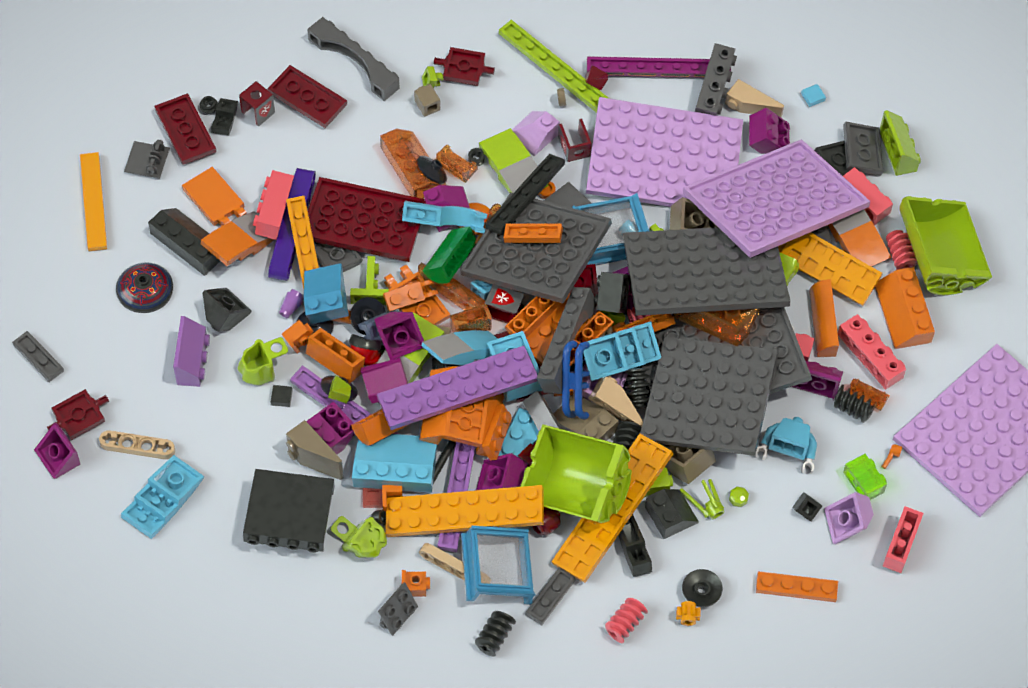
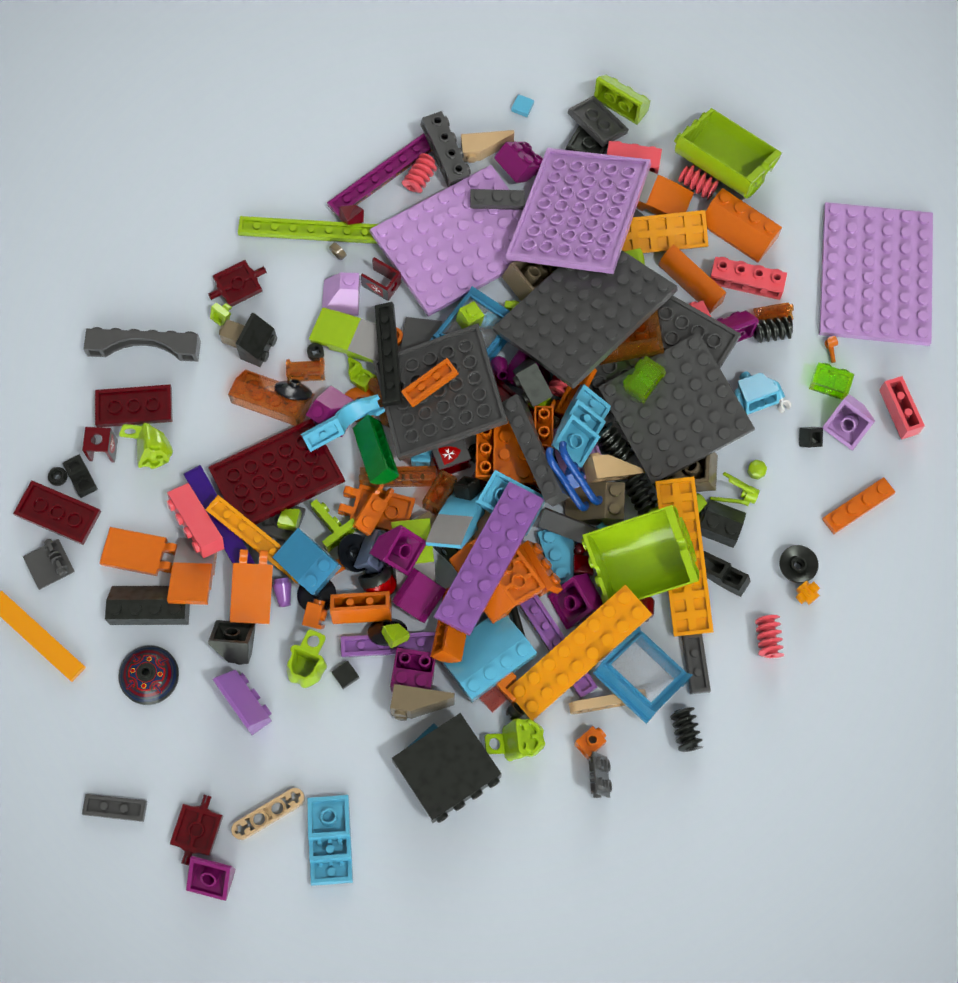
camera: 40 degrees left, 10 degrees up
(269, 282) = (251, 590): none -> orange tile
(294, 132) = (152, 445): none -> lime piece
(342, 255) = (289, 519): none -> lime slope
(437, 114) = (256, 340): none -> pearl dark grey slope
(492, 195) = (359, 375): none -> lime slope
(492, 331) = (467, 488): none -> pearl dark grey slope
(604, 265) = (500, 367): none -> magenta cone
(612, 209) = (469, 315): none -> lime brick
(679, 85) = (420, 173): none -> coral piece
(700, 352) = (644, 379): none -> clear neon green brick
(720, 146) = (497, 199): none -> dark grey plate

